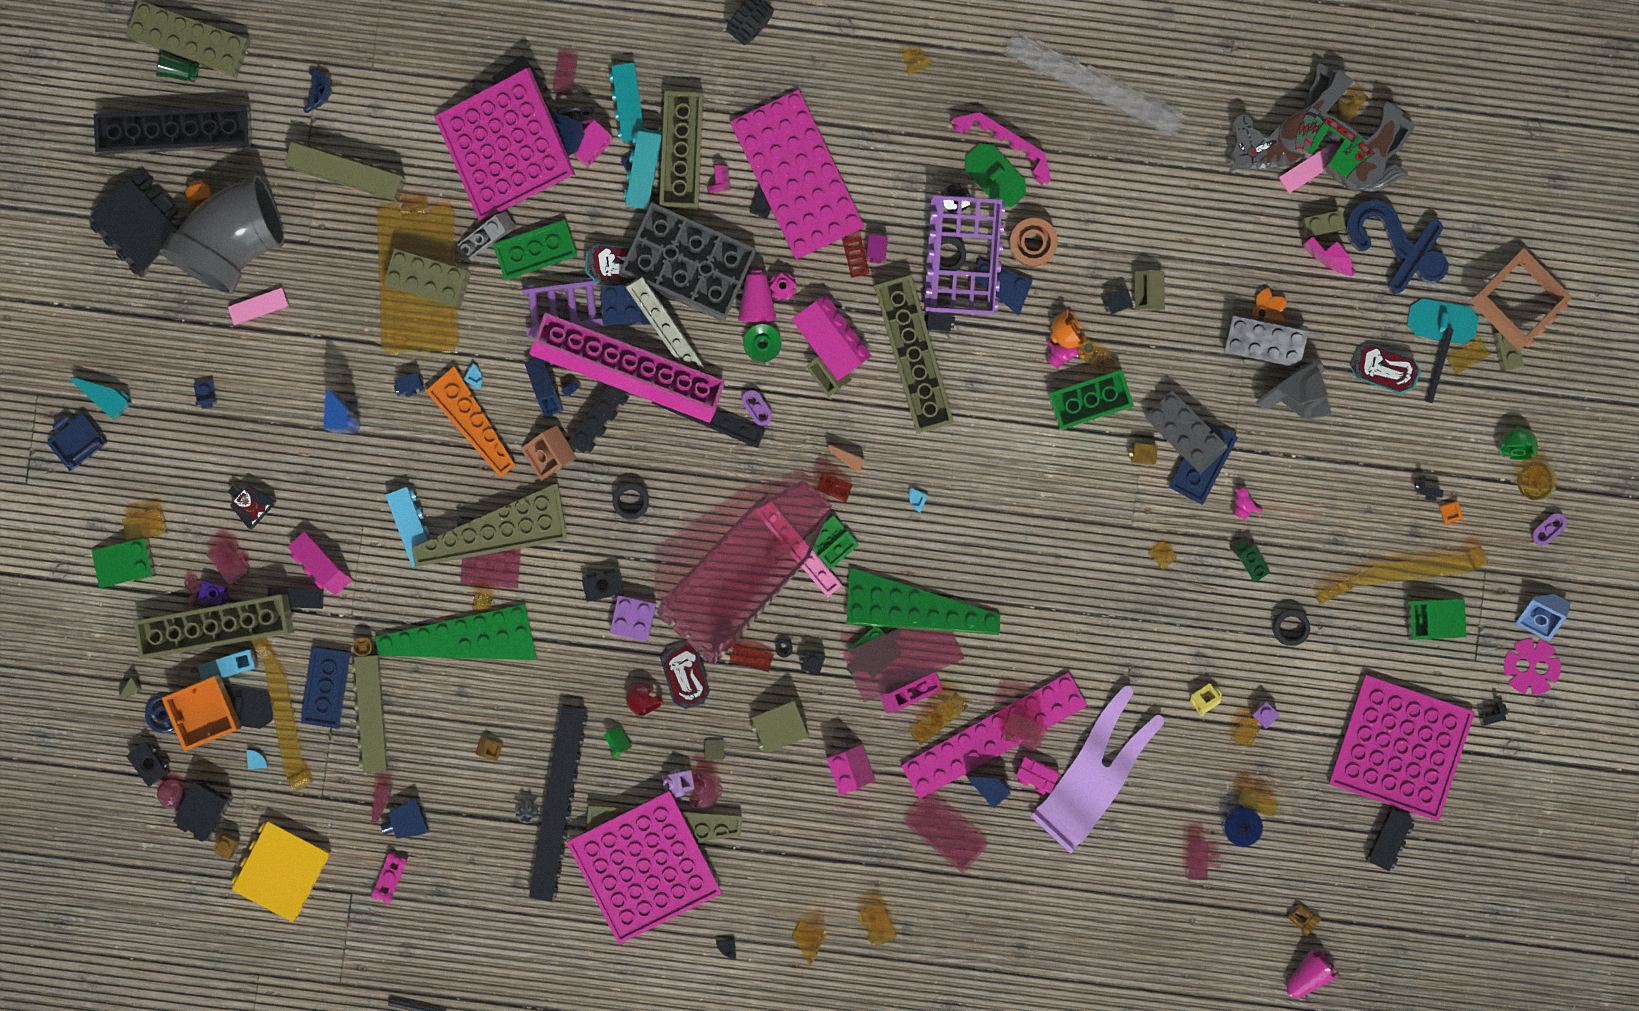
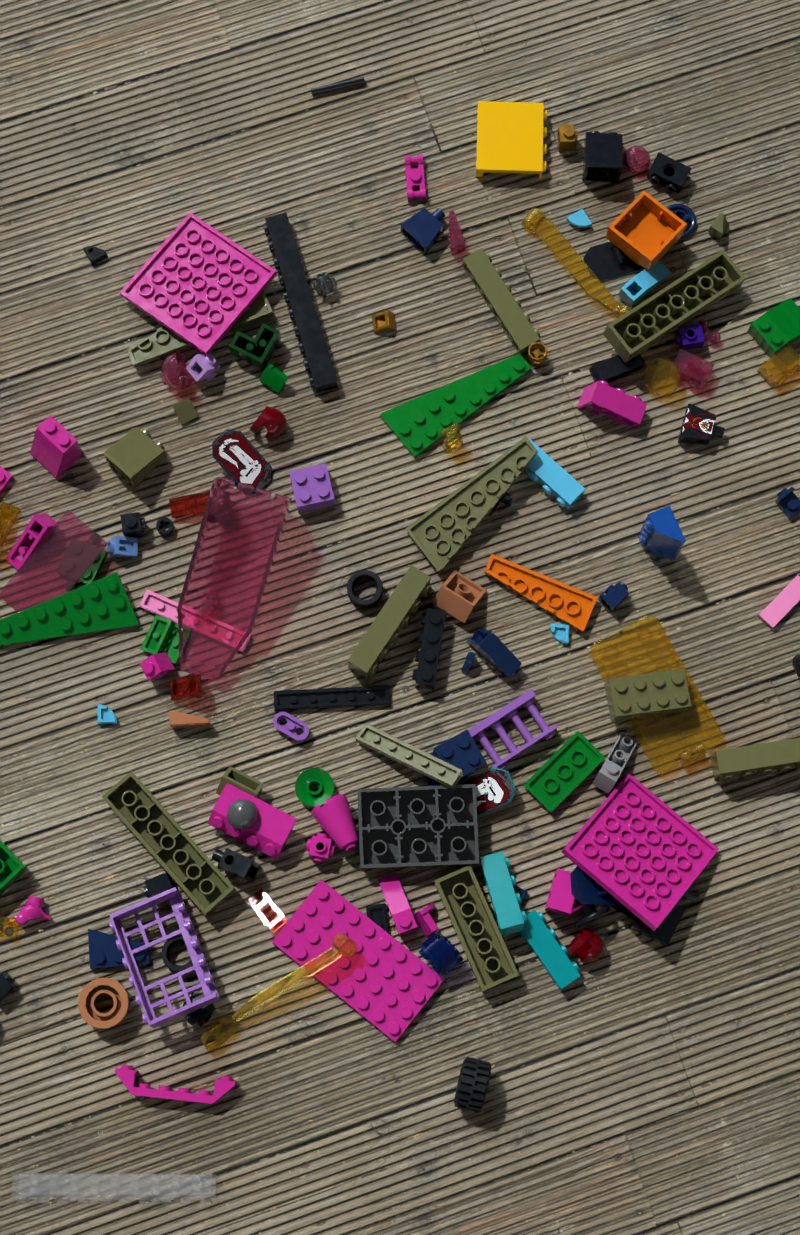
camera: 155 degrees right, 10 degrees down
(260, 567) = (662, 377): none -> clear yellow tile
(325, 687) = (551, 305): dark blue plate -> none
(492, 569) = (456, 471): clear pink plate -> none
(565, 72) = (620, 950): clear pink plate -> none
(592, 89) = (587, 946): none -> dark red helmet
(614, 588) = (358, 494): black brick -> none
(621, 774) = (256, 350): none -> dark green brick
(624, 457) = (389, 622): none -> olive brick
(627, 367) = (425, 701): dark pink brick -> none
(722, 143) = (441, 953): none -> clear blue brick
(739, 205) = (397, 904): none -> dark pink slope
(806, 189) = (278, 989): none -> clear yellow piece
(808, 939) = (25, 294): clear yellow slope -> none
(831, 647) = (123, 546): none -> medium blue bracket
(837, 345) = (242, 814): none -> dark grey hair
(851, 519) = (157, 666): none -> dark pink brick
(857, 301) = (241, 867): none -> black torso
(877, 248) = (250, 926): magenta brick -> none
(921, 64) = (298, 1133): clear yellow piece -> none
(995, 174) = (171, 1052): green shield -> none
(1067, 330) = (35, 935): orange cylinder -> none

